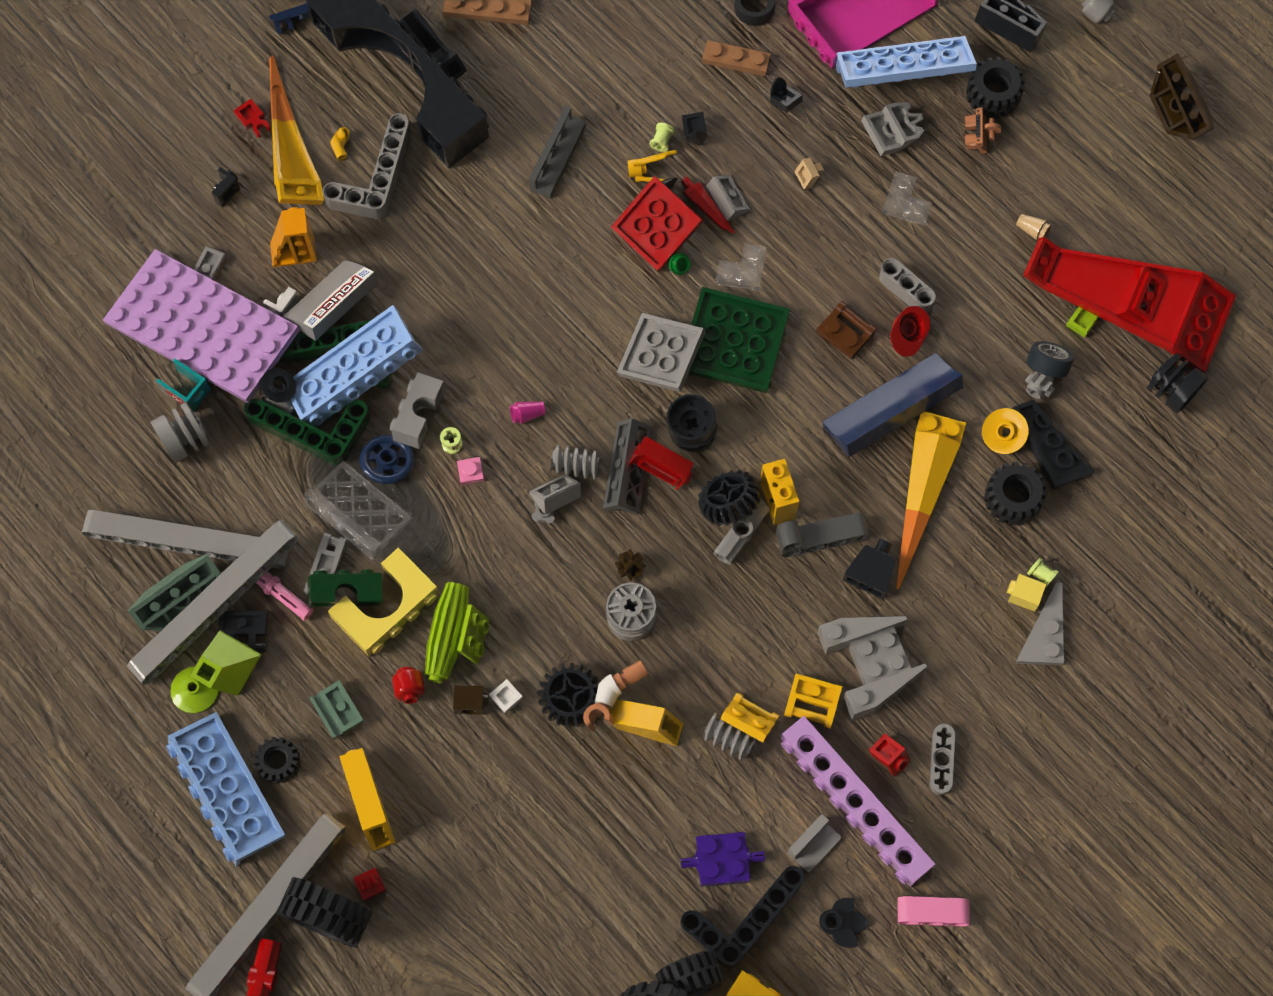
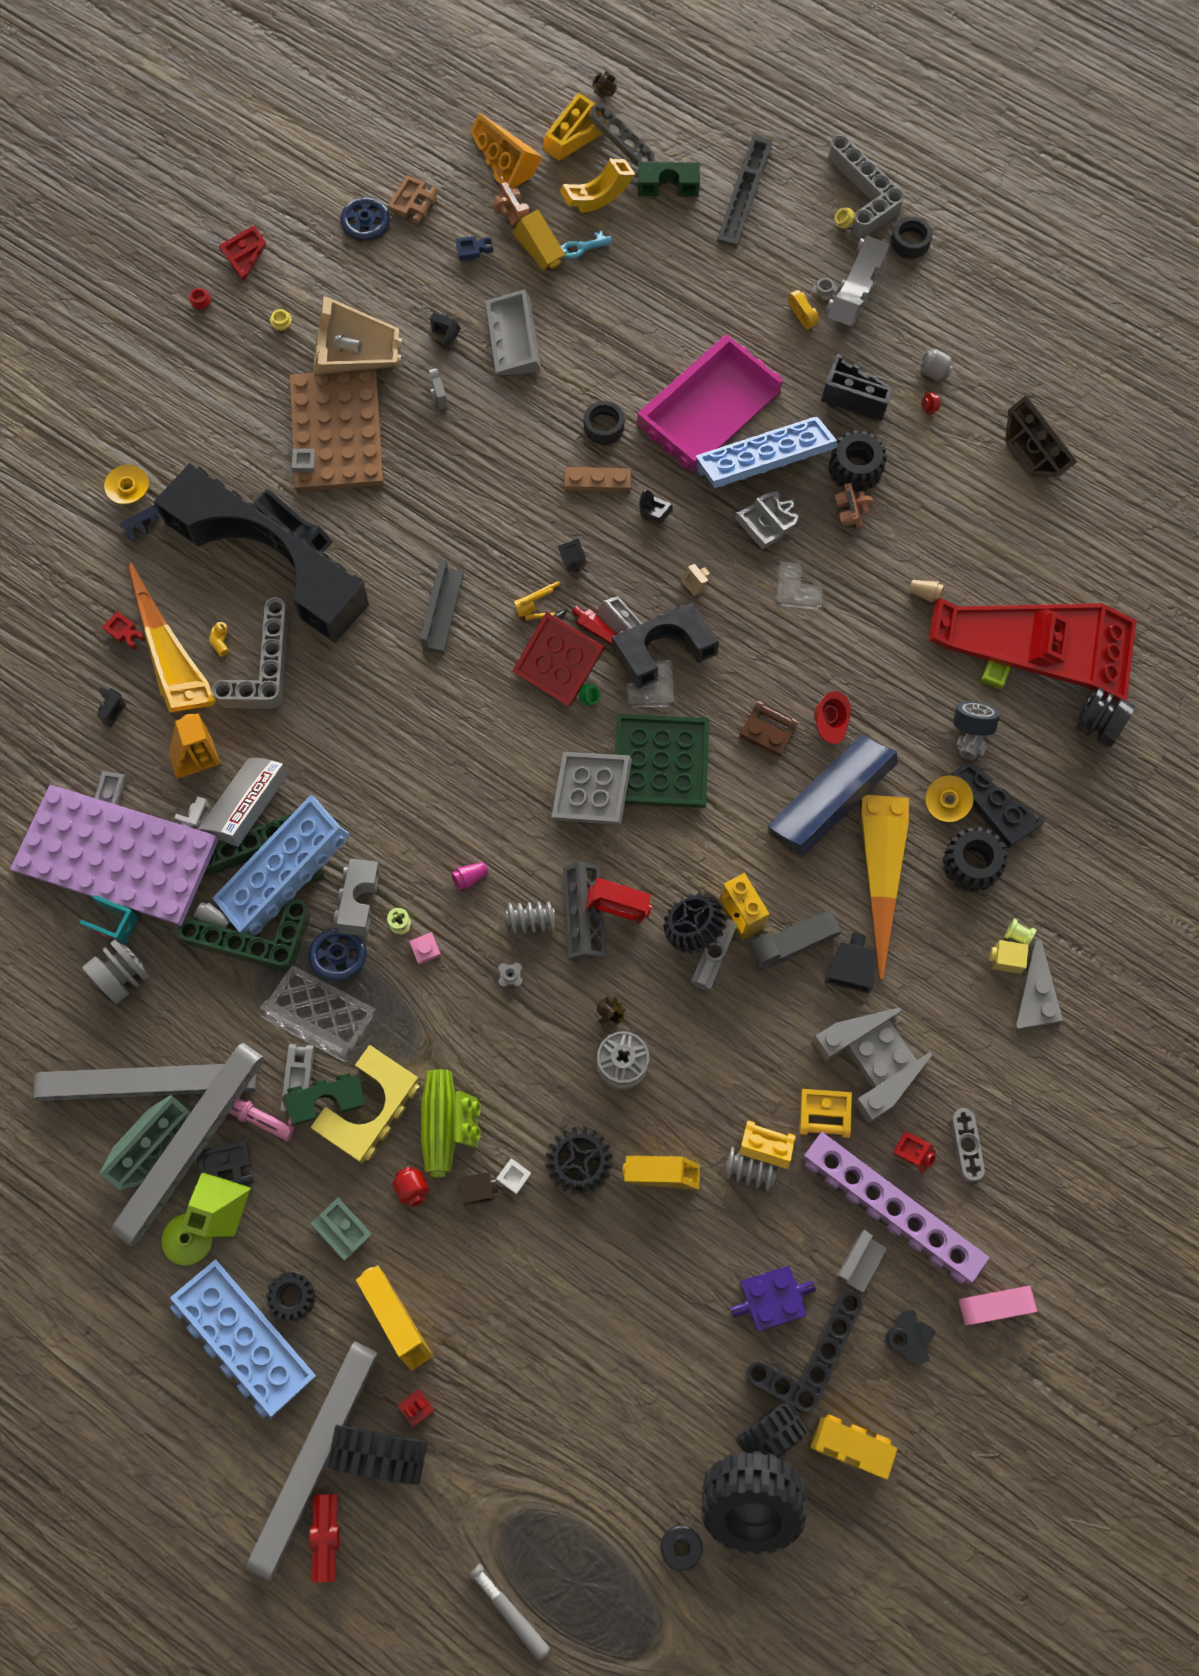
camera: 15 degrees left, 0 degrees up
(271, 391) = (204, 910): black piece -> none
(556, 493) = (518, 954): light grey slope -> none
(608, 692) = (620, 1148): nougat piece -> none
(662, 137) = (543, 571): yellowish green bush -> none
(687, 411) = (634, 842): black wheel -> none
(784, 213) = (681, 624): none -> black arch
(905, 276) = (814, 663): light grey beam -> none
(1083, 43) = (930, 403): none -> red plate

